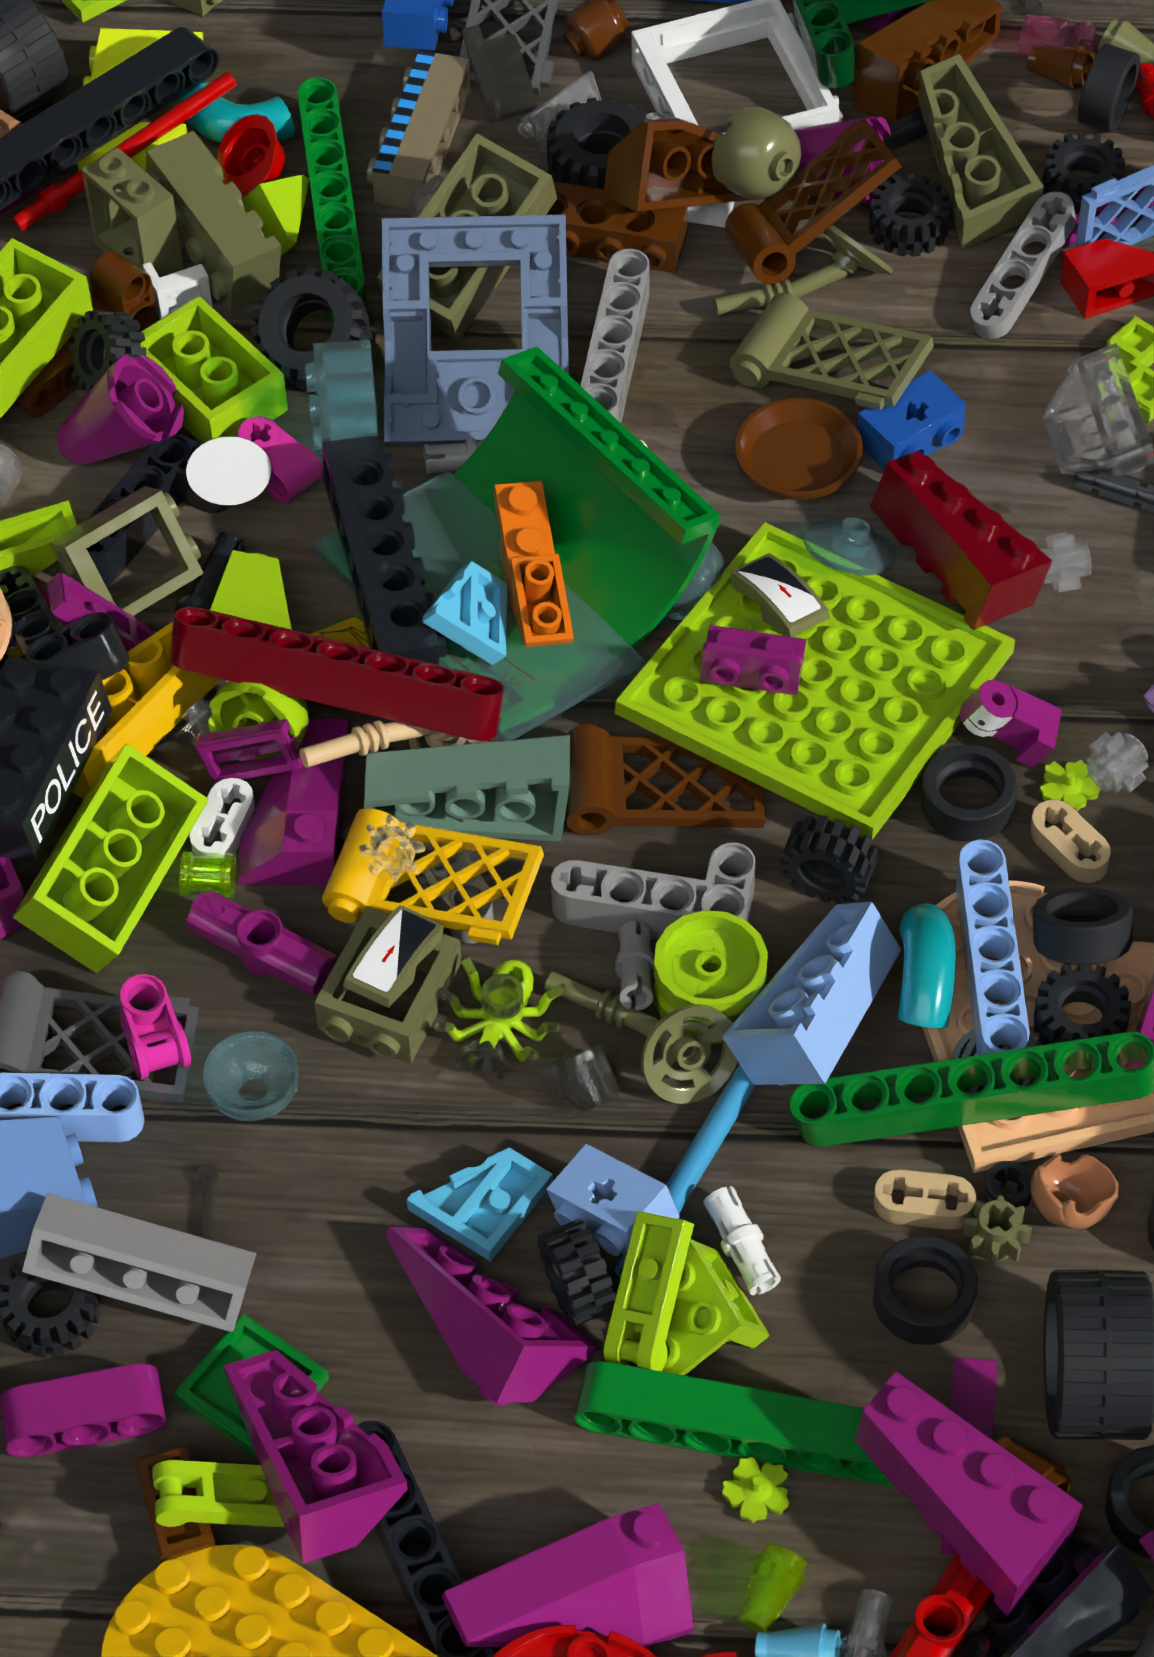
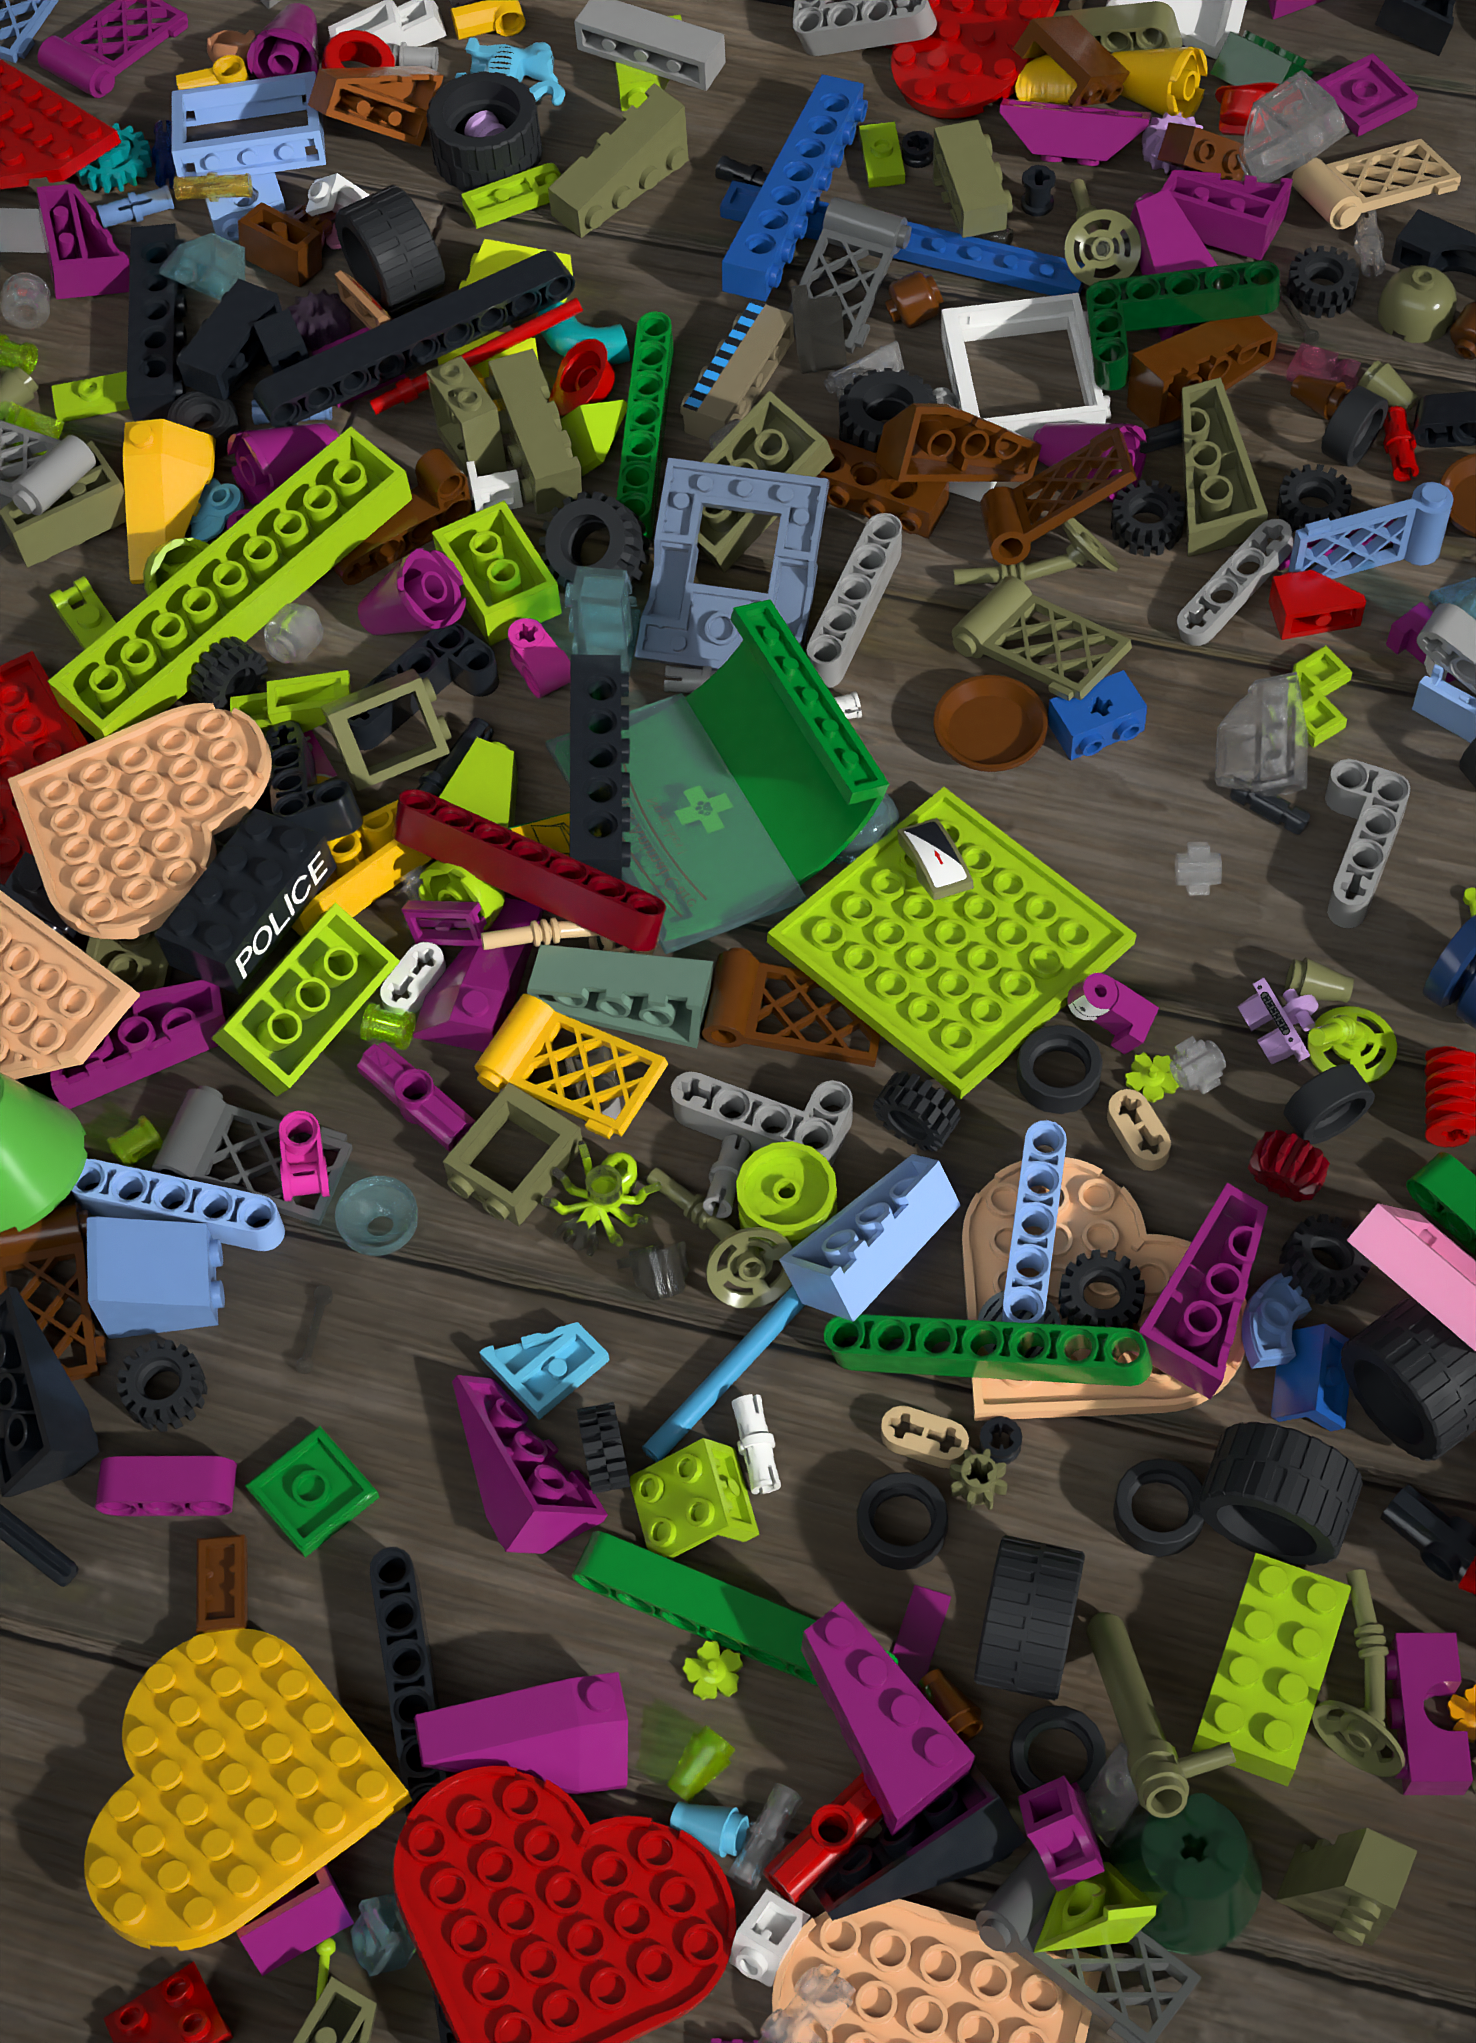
camera: 15 degrees right, 5 degrees up
(73, 601) = (326, 764): magenta hinge -> none
(99, 342) = (411, 529): black tyre -> none
(139, 1262) = (238, 1367): light grey brick -> none
(223, 1490) = (267, 1588): lime plate -> none
(228, 470) = (491, 664): white sticker -> none
(318, 1464) = (343, 1577): magenta wedge -> none
(391, 956) = (515, 1132): slope -> none
(403, 855) = (537, 1050): clear gear -> none
(473, 612) = (662, 831): medium azure wing -> none
(531, 565) = (726, 795): orange slope -> none
(607, 1197) = (650, 1390): light blue brick -> none
(648, 1291) = (657, 1479): lime plate -> none
(752, 660) = (896, 915): magenta bracket -> none
(756, 154) = (1017, 443): olive cylinder -> none
(850, 546) = (1013, 821): clear light blue dish -> none
(927, 967) = (974, 1228): teal cylinder -> none
(960, 540) = (1110, 834): dark red wedge -> none
(1074, 1192) = (1054, 1457): nougat hair -> none
(1082, 925) = (1120, 1235): black tyre -> none

